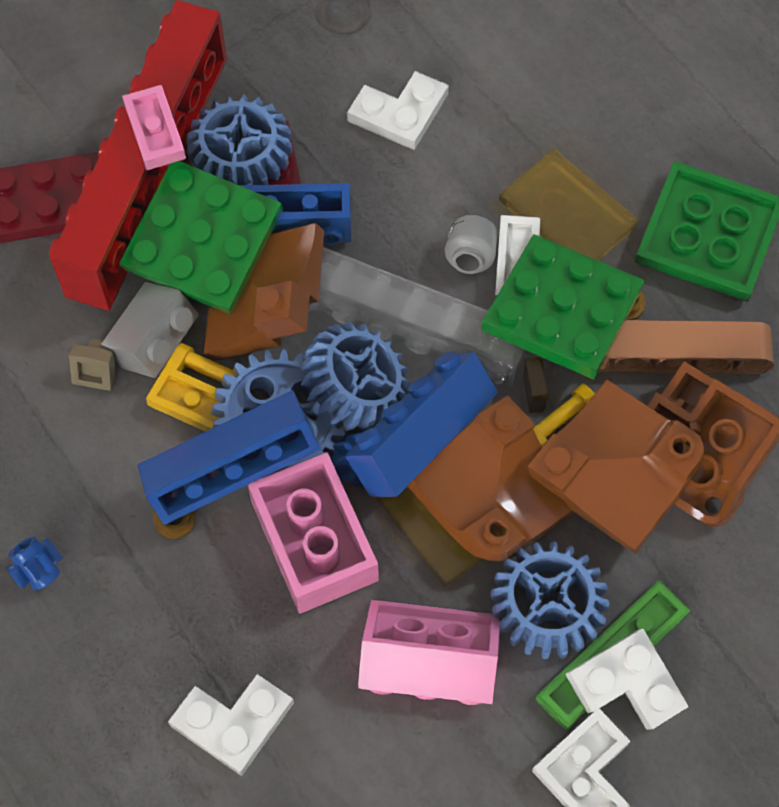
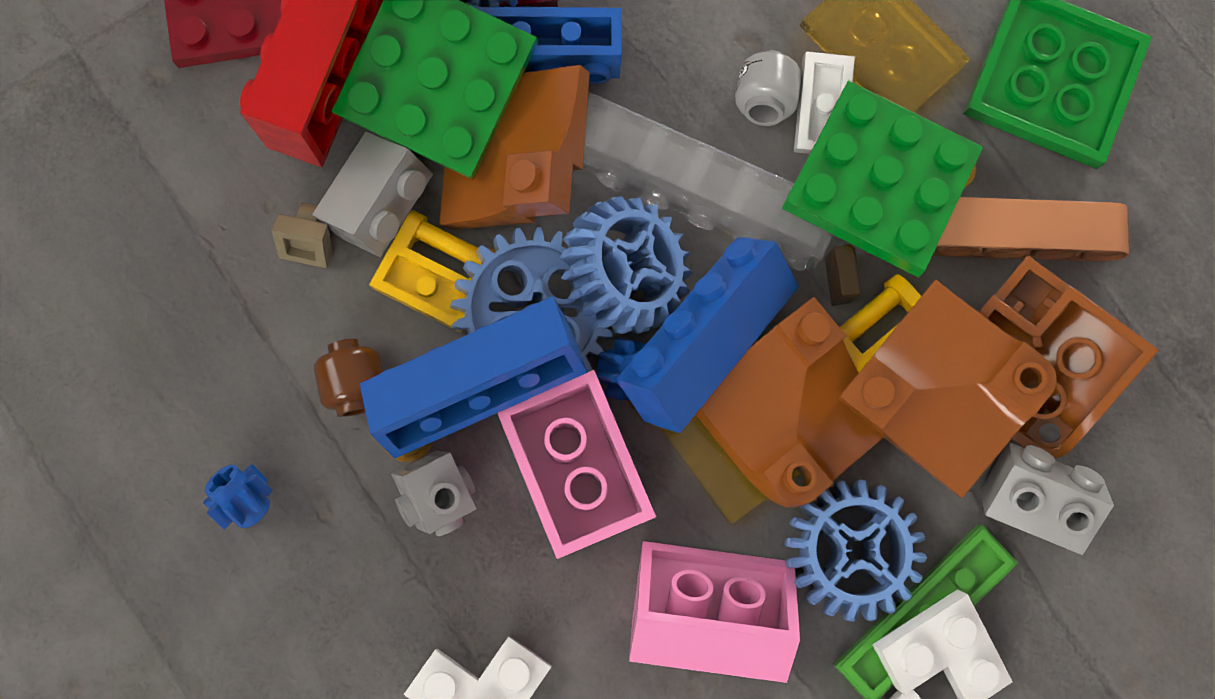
camera: 10 degrees left, 15 degrees up
(121, 472) = (340, 374): none -> reddish brown head
(196, 556) = (429, 477): none -> light grey brick
(709, 551) = (1046, 497): none -> light grey brick

